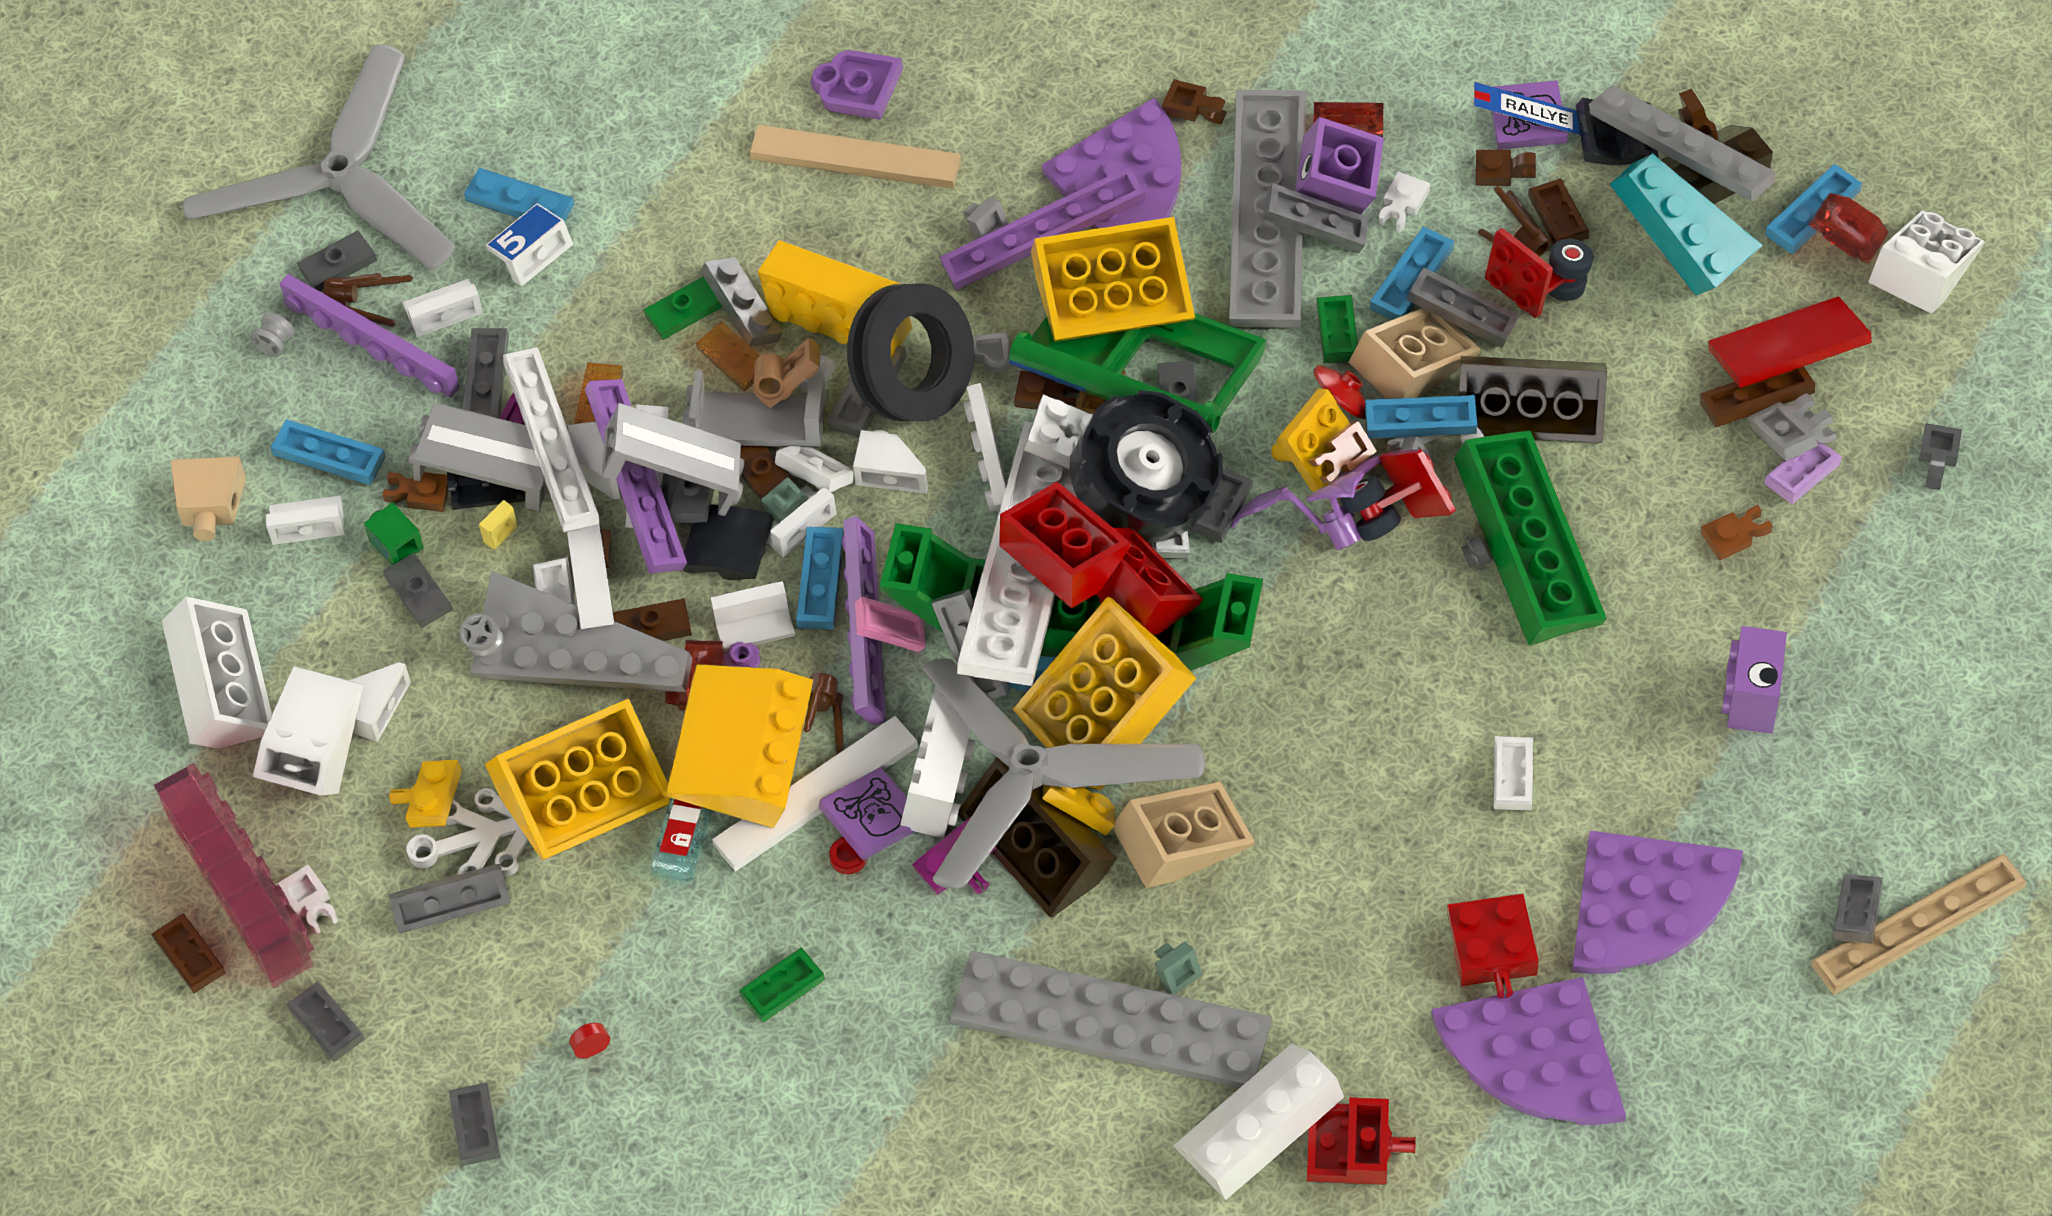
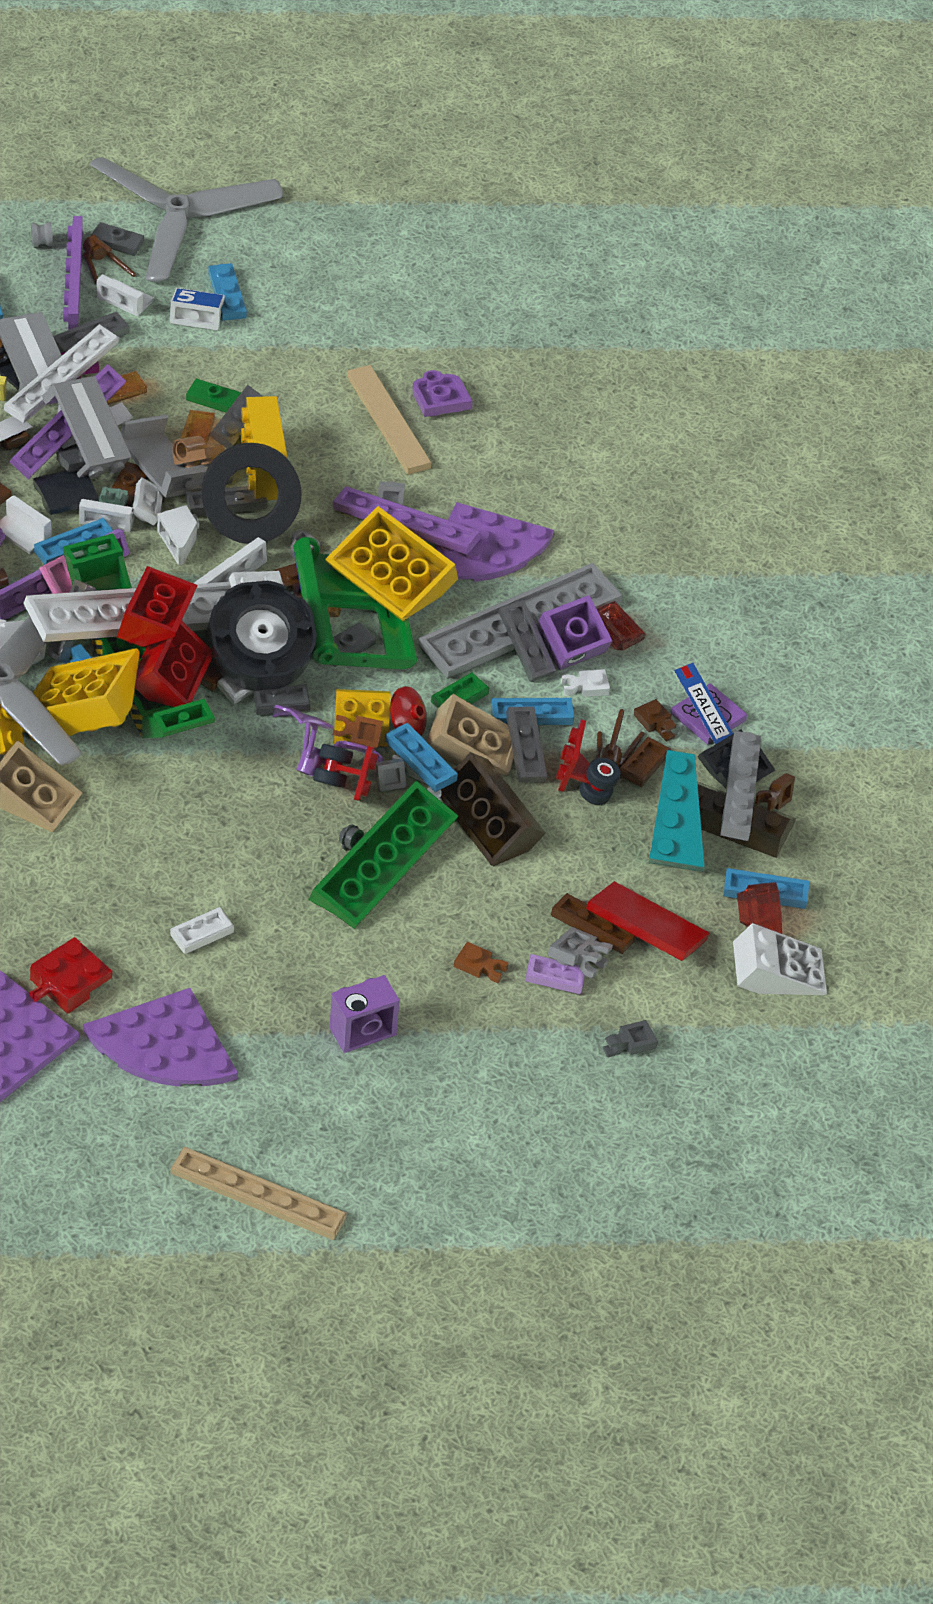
camera: 45 degrees right, 10 degrees down
(1189, 100) = (565, 546): reddish brown plate -> none
(1858, 908) = (240, 1151): flat silver plate -> none

